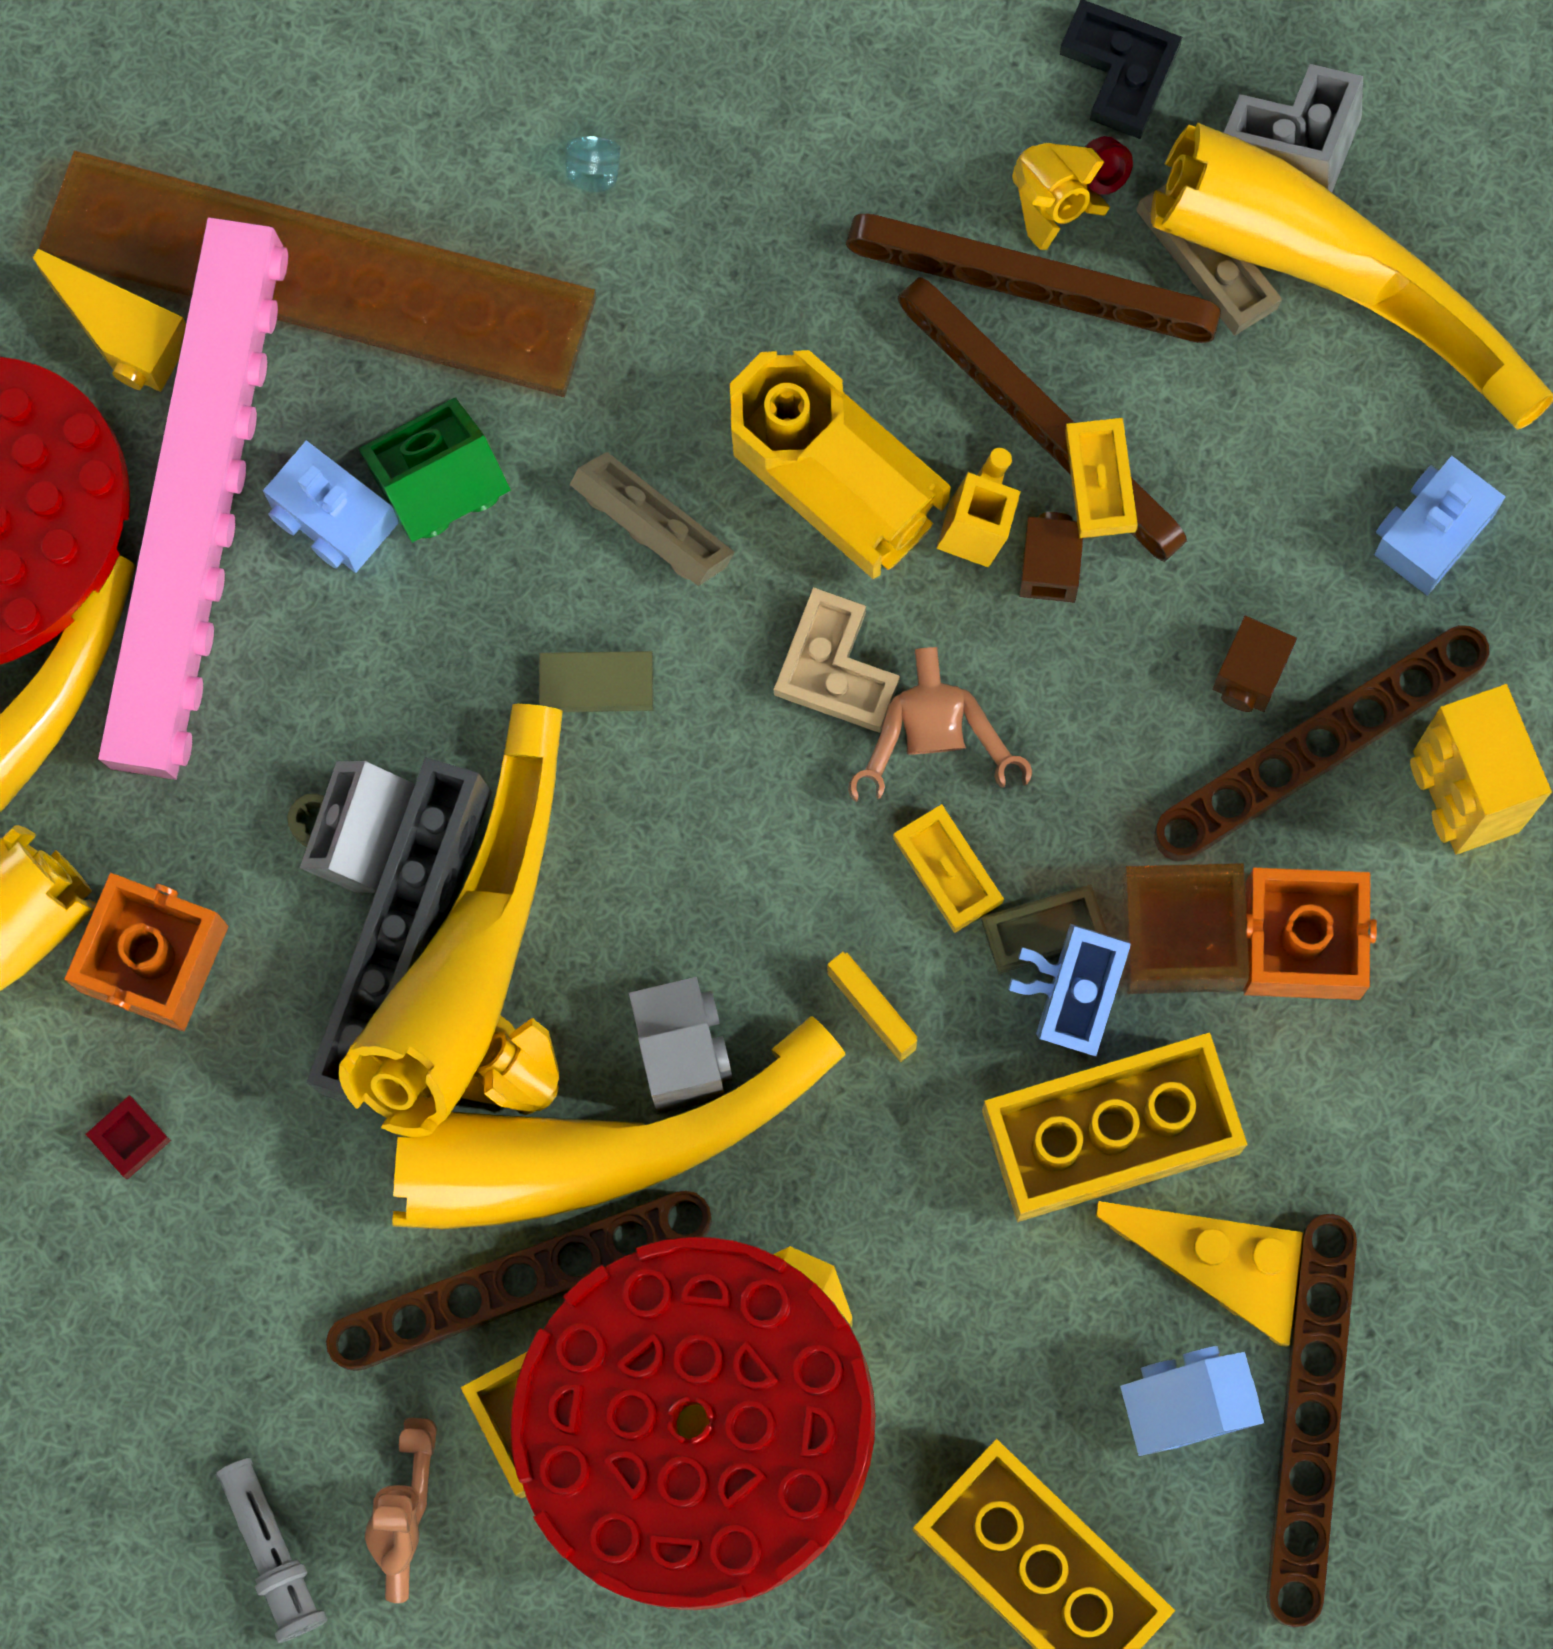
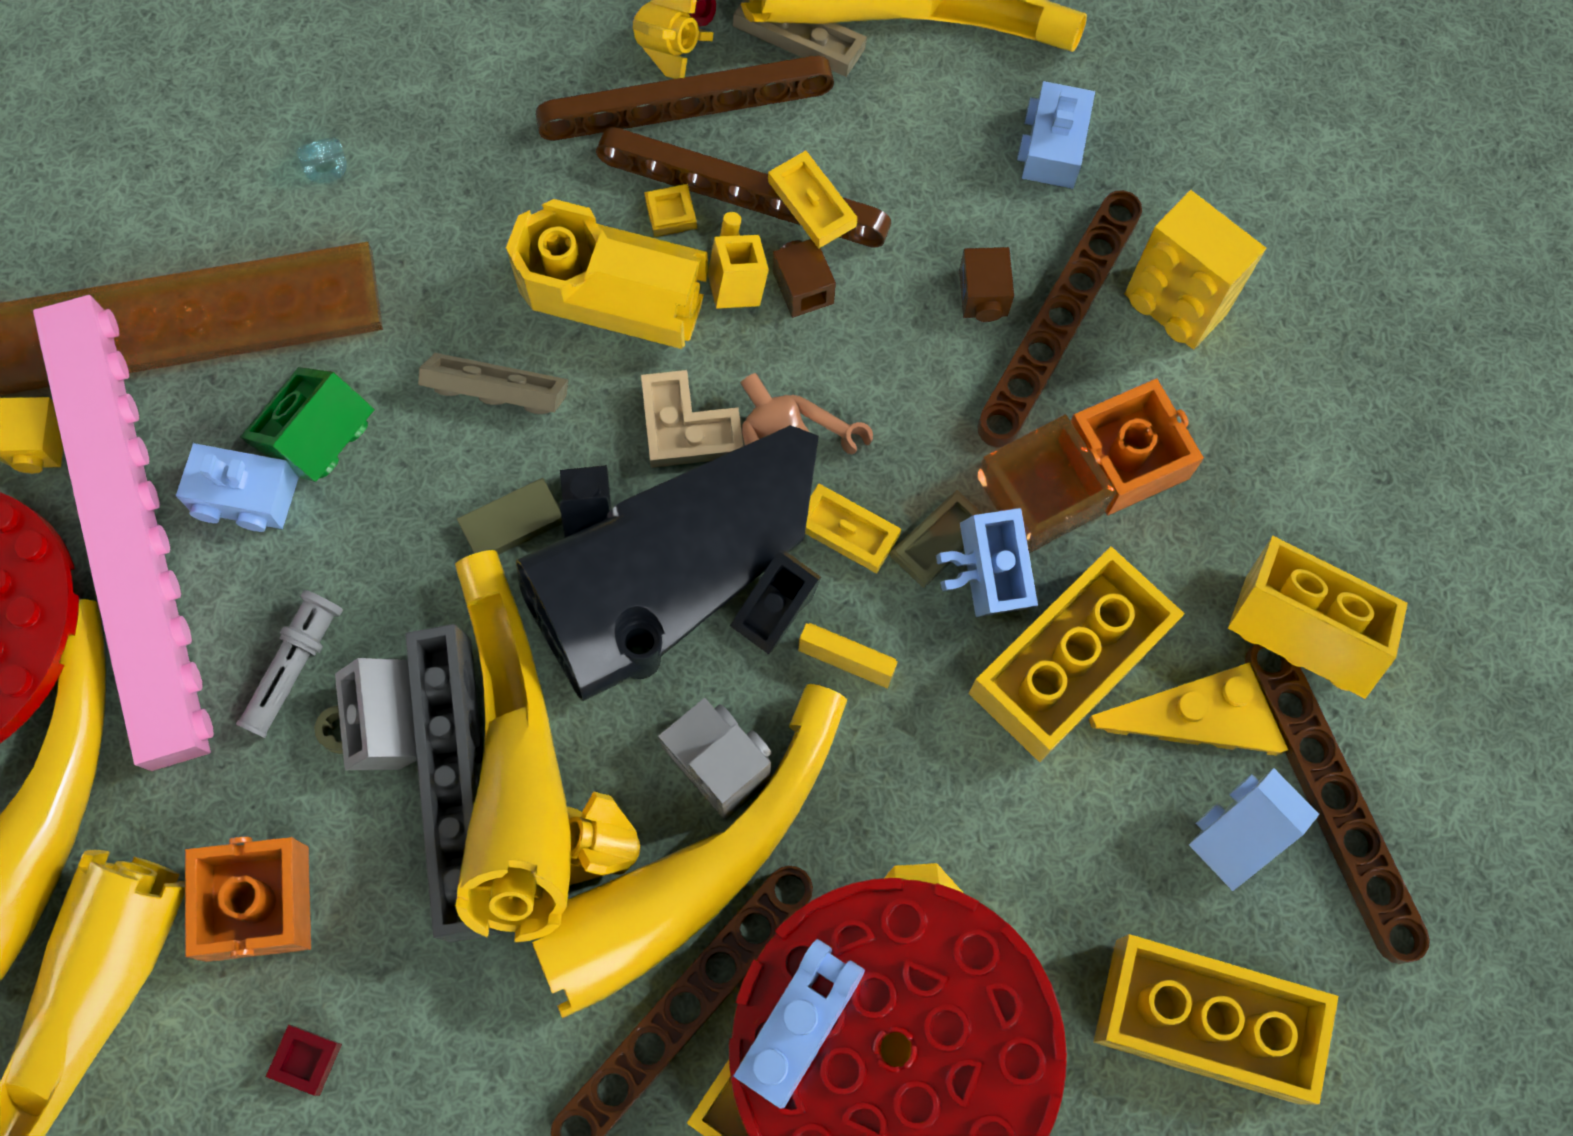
camera: 35 degrees left, 5 degrees down
(238, 767) = (299, 642): none -> light grey pin
(610, 1348) = (798, 1025): none -> light blue plate
(679, 714) = (584, 497): none -> black slope
(741, 809) = (667, 559): none -> black panel
(825, 912) = (776, 601): none -> black slope
(948, 405) = (670, 210): none -> yellow tile
(1396, 1220) = (1319, 617): none -> yellow brick

